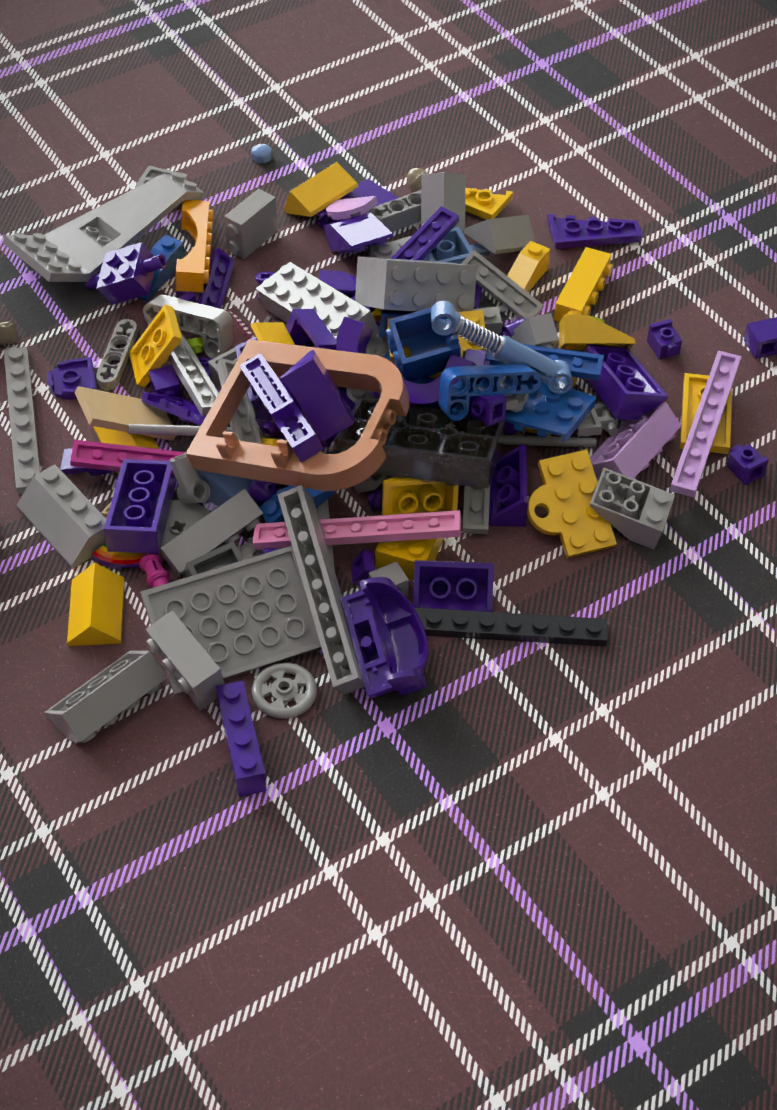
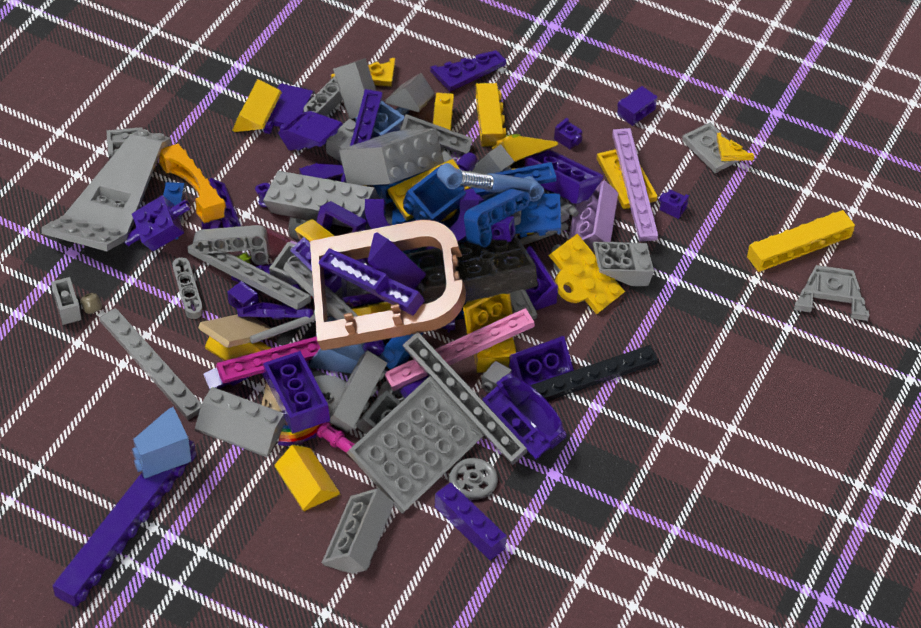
camera: 30 degrees left, 0 degrees up
(69, 375) = (167, 319): dark purple tile -> none
(155, 344) = (221, 270): yellow plate -> none
(185, 658) = (406, 483): light grey wedge -> none
(191, 487) = (320, 364): light grey piece -> none
(251, 223) = (223, 150): light grey brick -> none
(261, 153) = (184, 90): medium blue tile -> none
(344, 208) = (290, 112): lavender tile -> none
(362, 566) = (471, 374): dark purple plate -> none
(414, 178) = (319, 71): dark tan piece -> none

